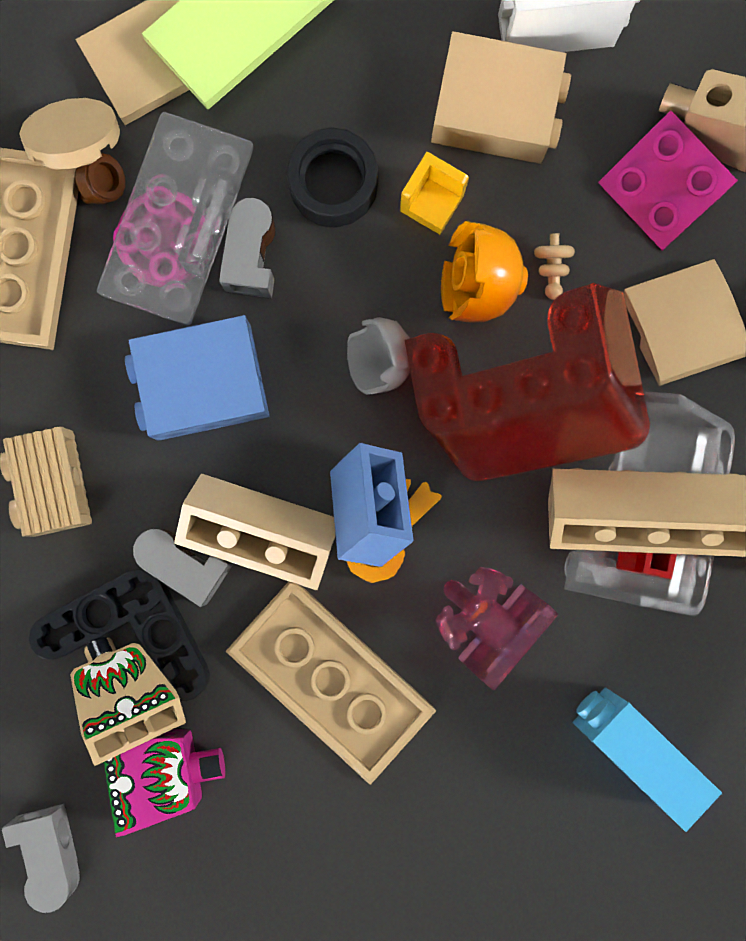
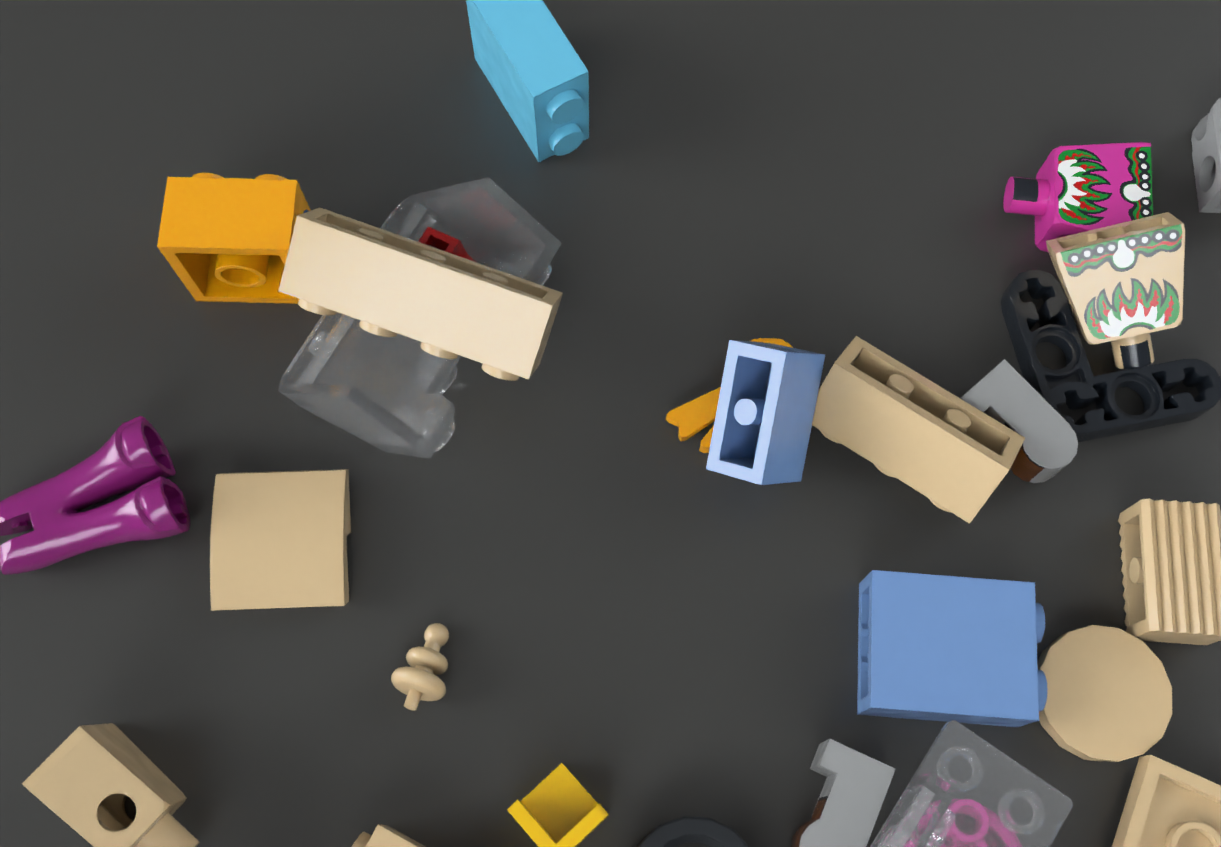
camera: 165 degrees left, 15 degrees down
(84, 385) = (1104, 694): none -> tan tile
(331, 681) = (858, 251): tan tile -> none
(378, 356) = (698, 606): light grey hair -> none
(483, 274) = (529, 673): light orange cylinder -> none
(501, 630) = (648, 247): clear pink piece -> none
(540, 409) = (470, 432): clear red windscreen -> none
(667, 180) = (228, 737): dark pink hinge -> none

